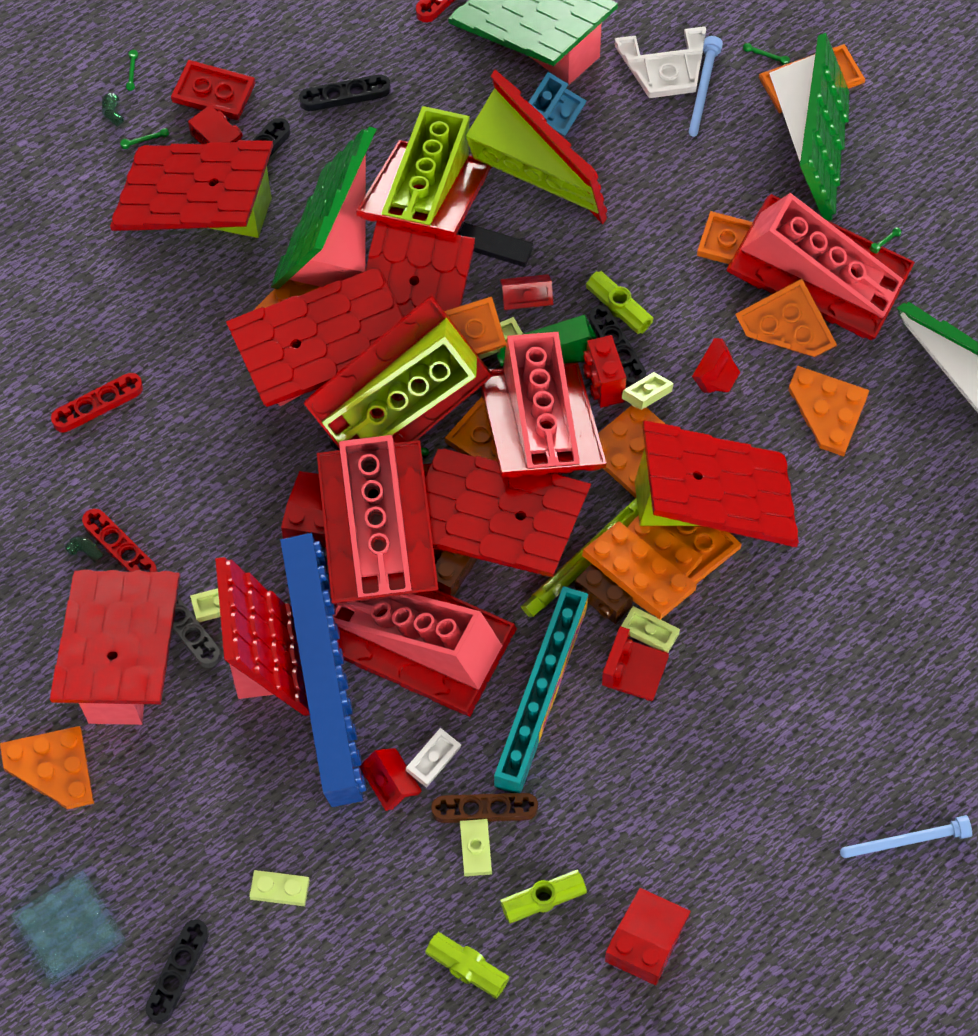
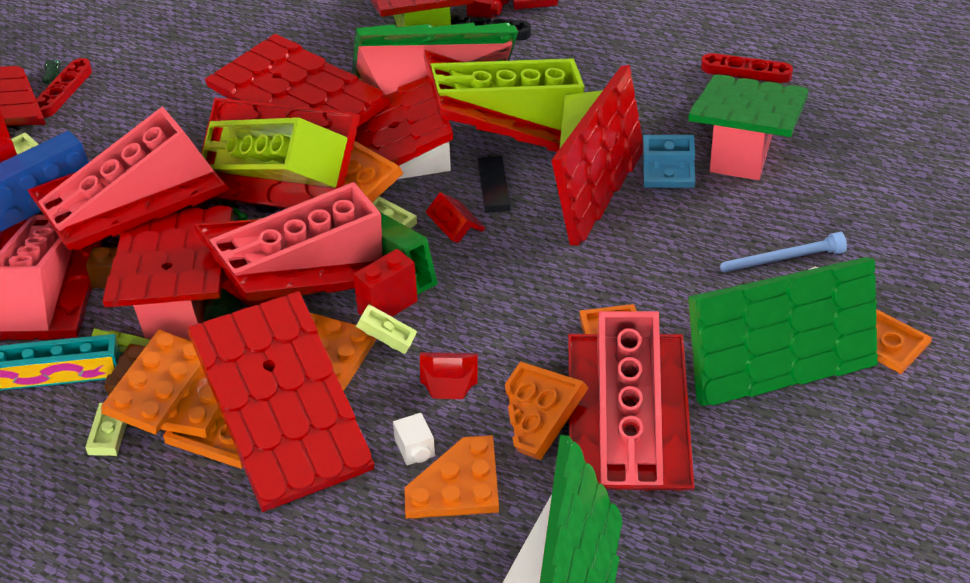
camera: 65 degrees right, 20 degrees down
(95, 399) = (212, 40): red beam -> none
(344, 89) = (605, 62): black beam -> none
(621, 344) = (435, 300): black beam -> none
(628, 311) = (480, 279): lime piece -> none
(634, 667) = (58, 425): red bracket -> none
(666, 71) = (780, 225): white wing -> none
(778, 418) = (414, 439): none -> white brick
(875, 247) = (681, 441): green hinge -> none

